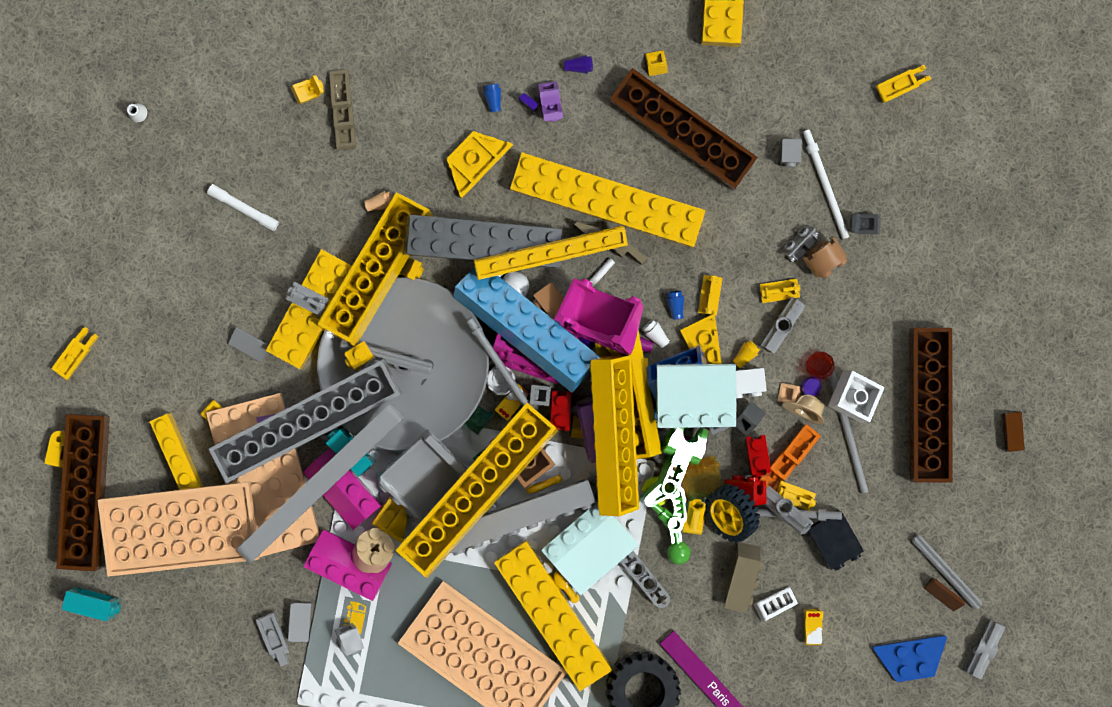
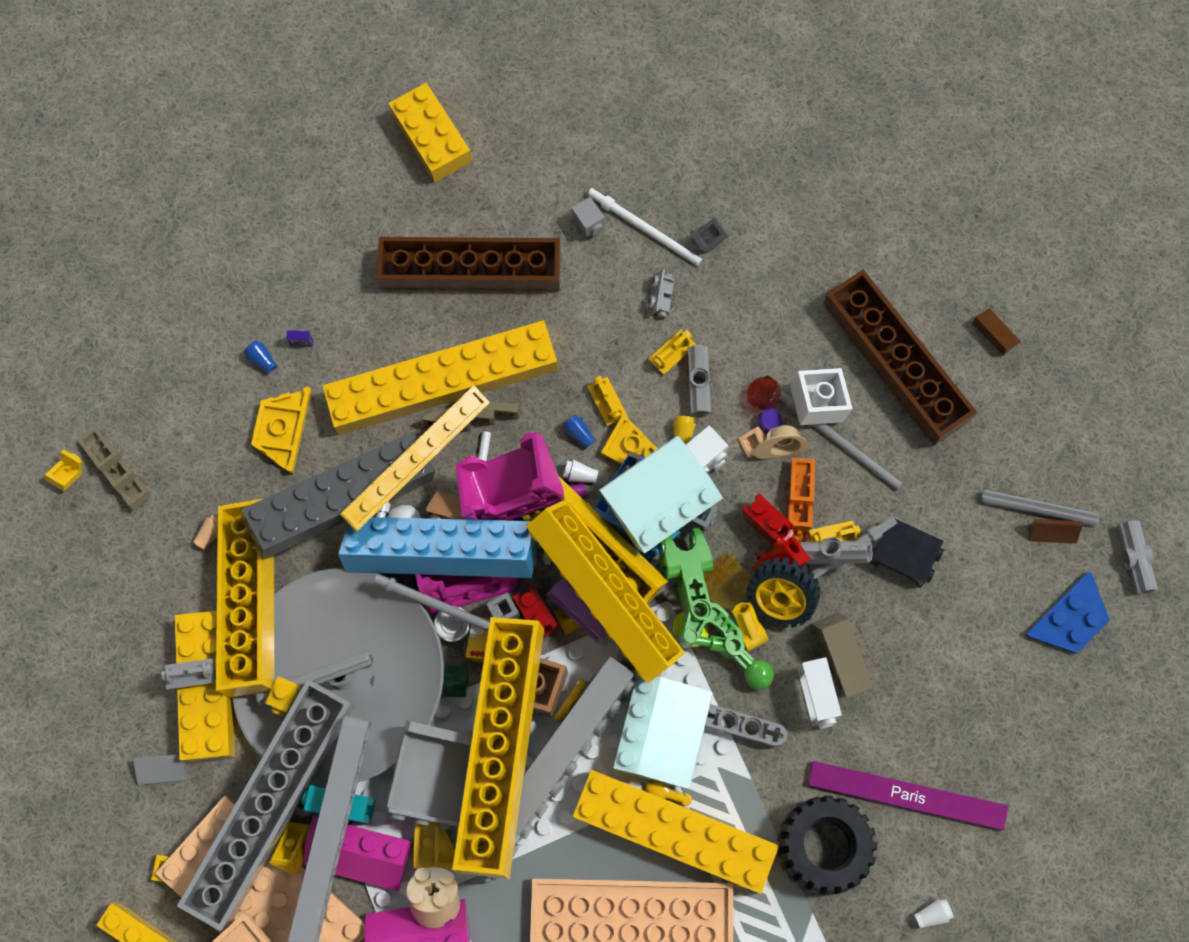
camera: 30 degrees left, 15 degrees down
(261, 218) = (41, 634): white piece -> none
(303, 456) = (291, 848): none -> yellow slope
(412, 269) = (285, 573): yellow bracket -> none
(550, 101) = (321, 323): medium lavender brick -> none
(579, 64) = (327, 272): dark purple cone -> none
(656, 63) = (402, 224): yellow slope -> none
(708, 593) = (819, 693): none -> white window
(749, 418) = (731, 490): dark grey brick -> none
(761, 611) = (889, 673): white slope -> none
(813, 626) = (951, 655): yellow leg -> none
(825, 257) = (692, 288): medium nougat brick -> none
(901, 84) = (649, 94): yellow hinge -> none

